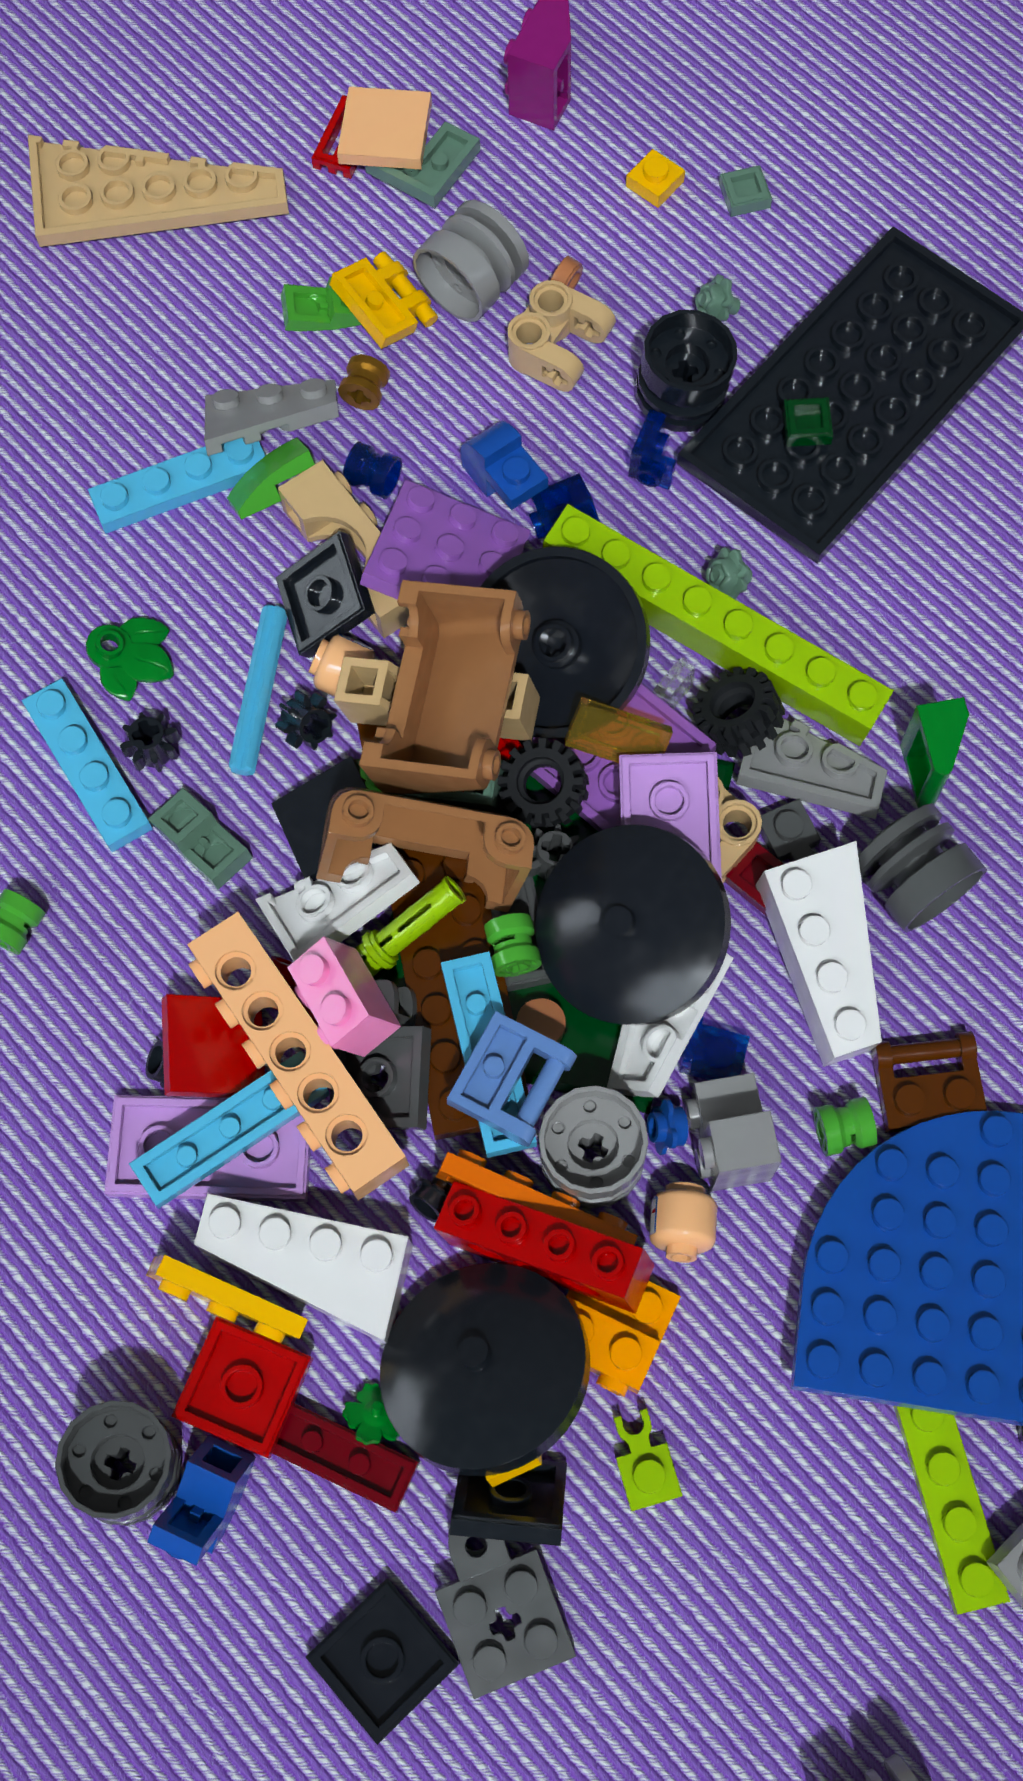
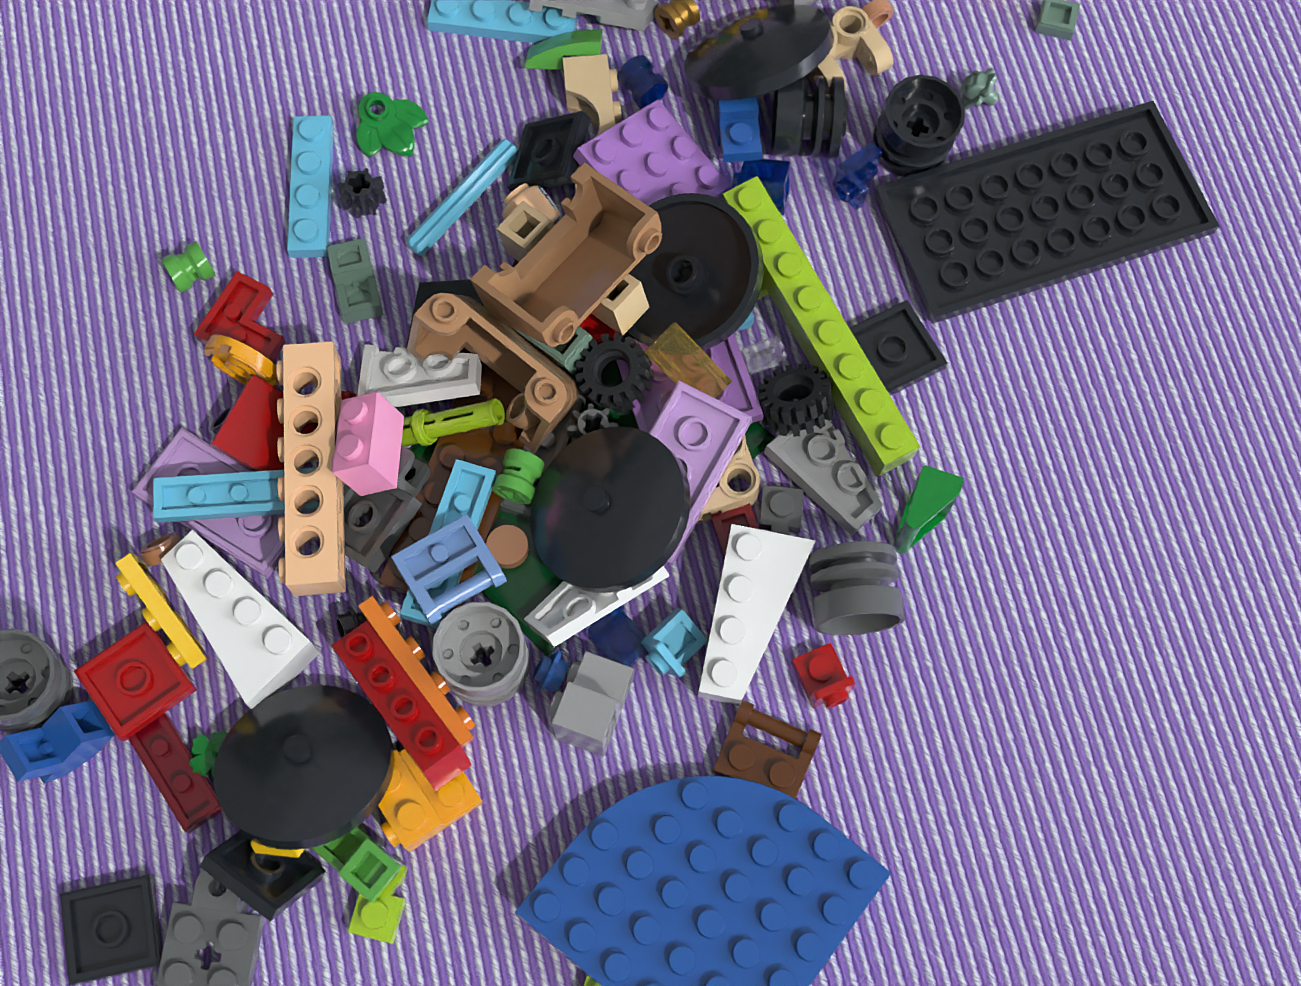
camera: 25 degrees right, 0 degrees up
(101, 960) = (236, 314): none -> red plate
(141, 987) = (240, 360): none -> light orange tile
(179, 1234) = (158, 548): none -> nougat tile
(306, 720) = (471, 230): black gear -> none
(479, 866) = (520, 415): none -> medium nougat hinge
(480, 377) = (759, 52): none -> black dish
(569, 417) = (809, 117): none -> black wheel
(606, 1433) = (360, 862): none -> bright green slope
(683, 1221) = (516, 747): light nougat head -> none
(728, 572) = (856, 296): sand green plant -> none
(772, 1026) = (673, 643): none -> medium azure bracket
(802, 601) = (899, 347): none -> black tile
(807, 422) = (988, 212): dark green tile -> none
(845, 1126) = (680, 748): bright green wheel -> none
(936, 975) = (823, 677): none -> red bracket

